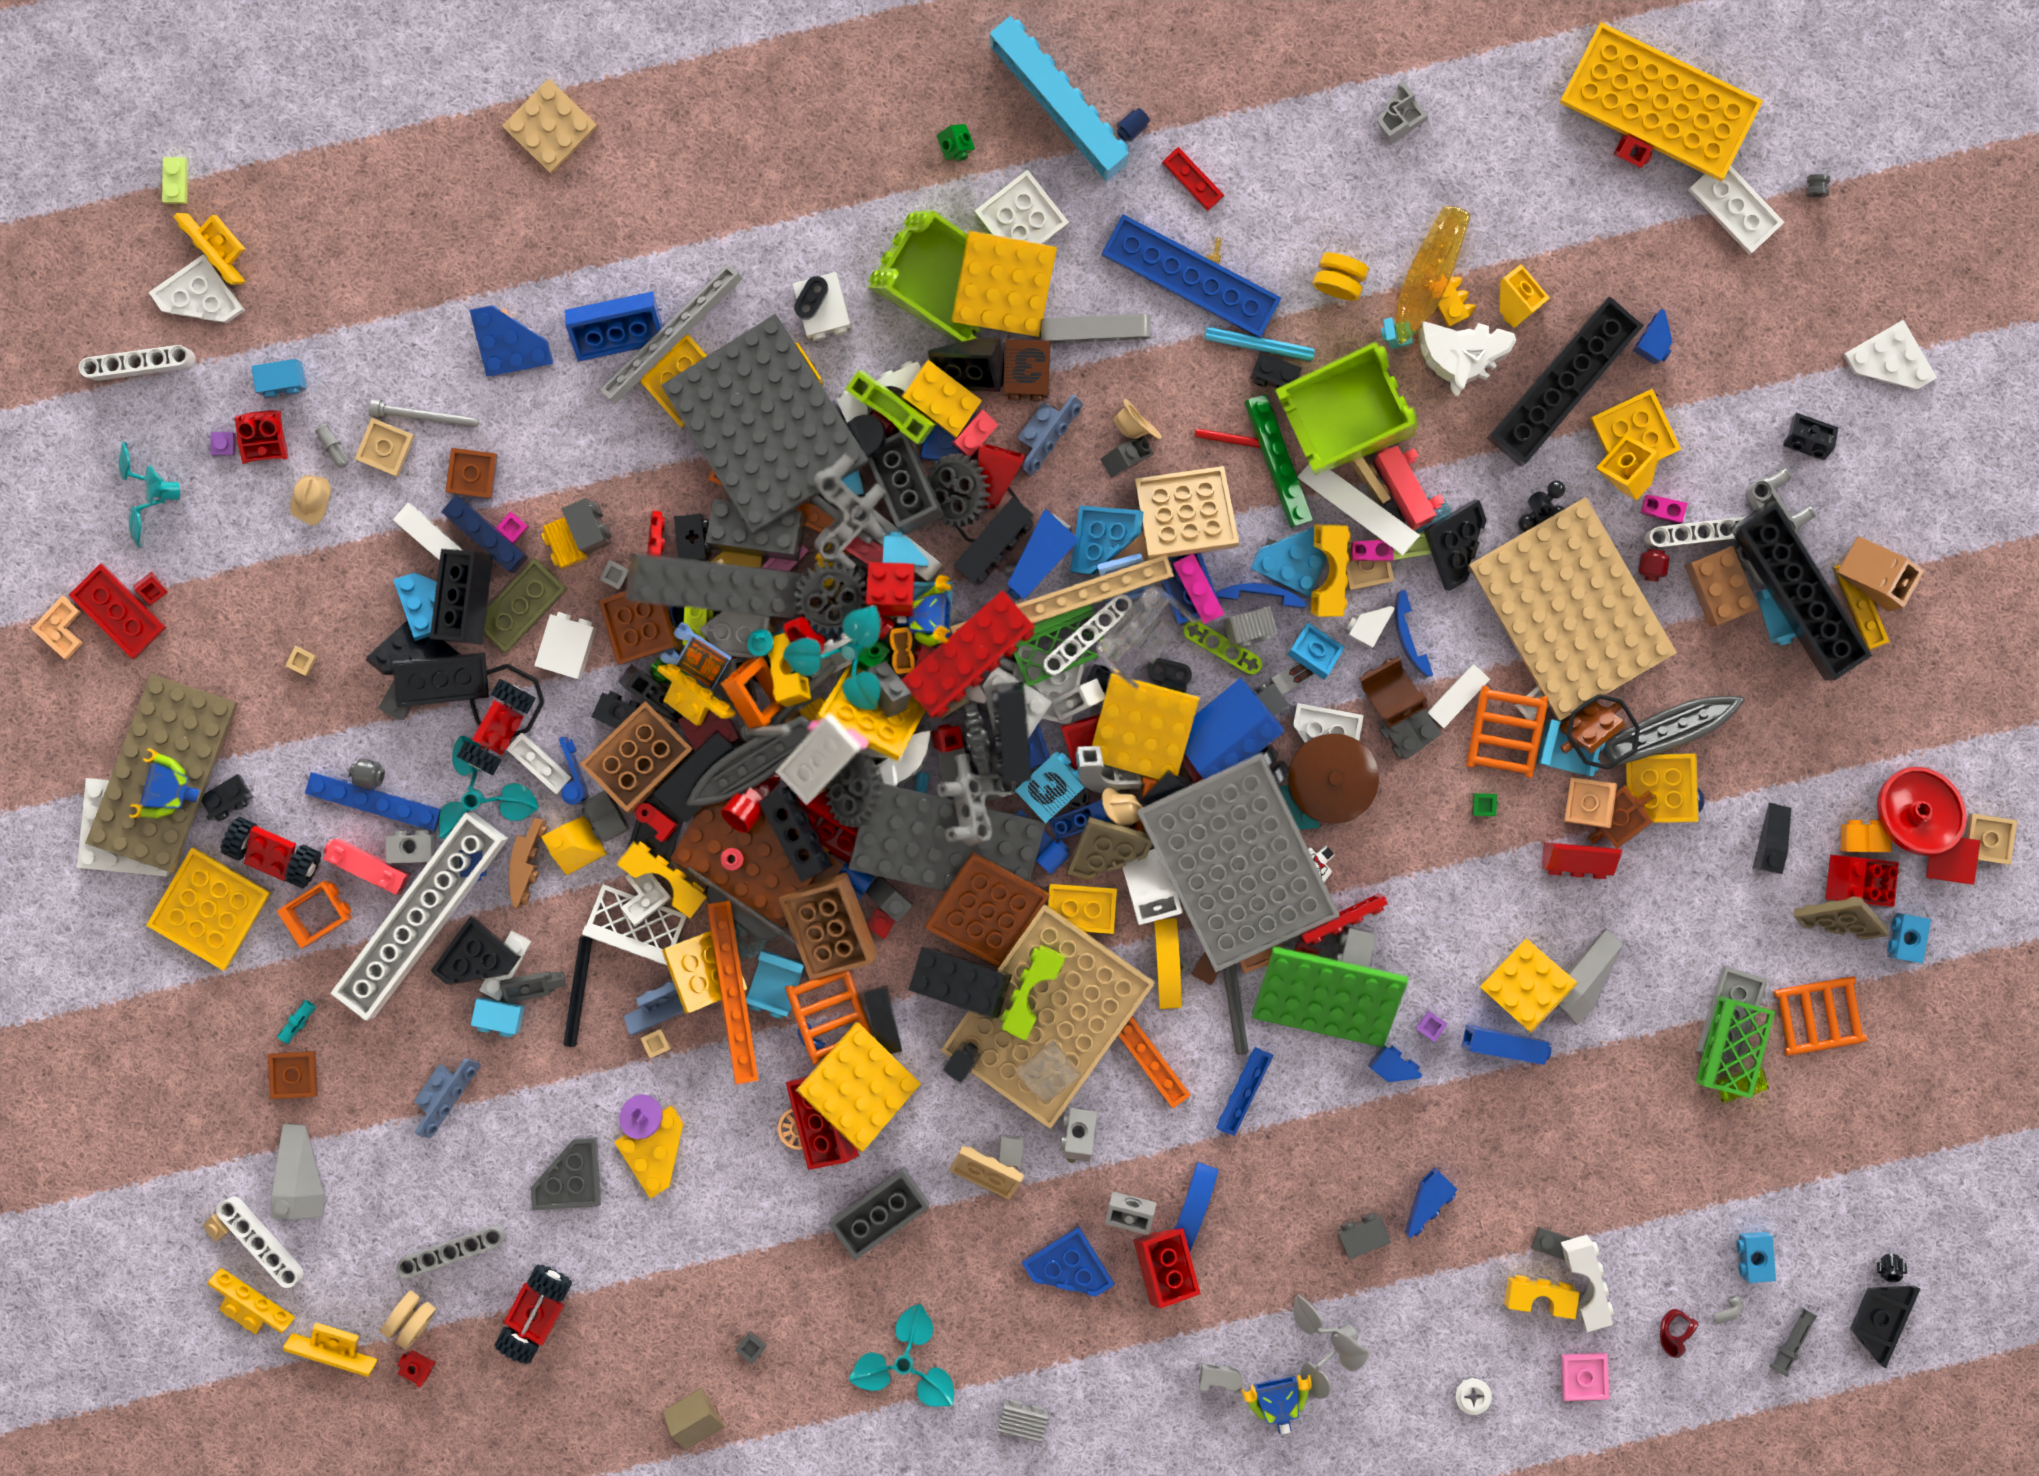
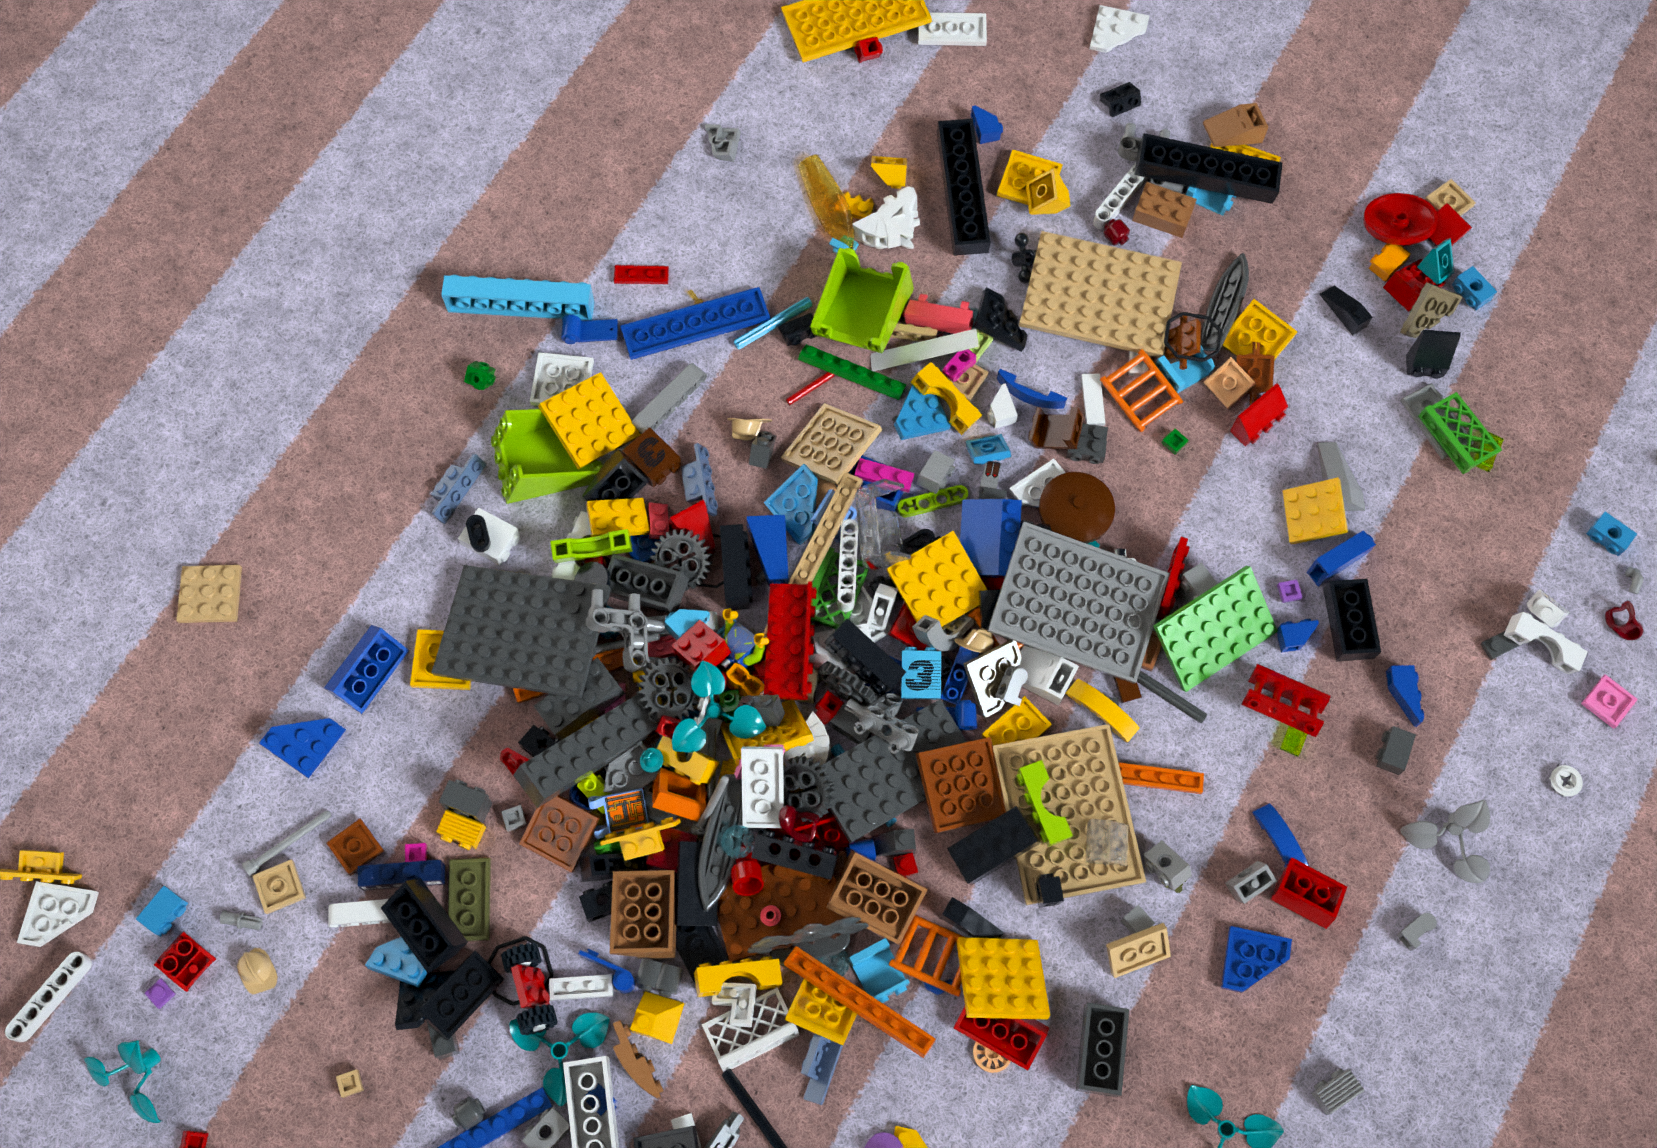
camera: 50 degrees left, 20 degrees down
(566, 645) = (525, 893): white brick -> none
(655, 1043) = (843, 1093): tan plate -> none
(657, 819) = (695, 942): red leg -> none
(671, 334) = (408, 639): light grey plate -> none
(766, 770) = (728, 843): none -> clear light blue gear
(816, 801) = (787, 818): none -> dark red piece
(837, 228) = (455, 486): none -> sand blue bracket
(1092, 190) = (588, 331): none -> blue door
(1112, 871) = (1011, 685): none -> leg
(1132, 124) = (576, 273): dark blue brick -> none
(1244, 1091) = (1231, 738): blue plate -> none
(1279, 1400) = (1467, 904): torso -> none
(1288, 598) = (939, 437): blue slope -> none
(1294, 1143) = (1293, 741): none -> clear neon green bracket
(1337, 1104) = (1290, 689): none -> red fence
(1340, 276) = (780, 244): yellow wheel -> none
(1452, 1102) = (1352, 620): none -> black brick
(1522, 1292) = (1519, 690): yellow arch -> none
(1623, 1261) = (1547, 609): none -> white torso
(1664, 509) = (1088, 200): dark pink leg -> none
(1791, 960) = (1432, 353): none -> black slope
(1826, 987) = (1465, 357): orange bar -> none
(1904, 886) = (1439, 262): none -> teal slope

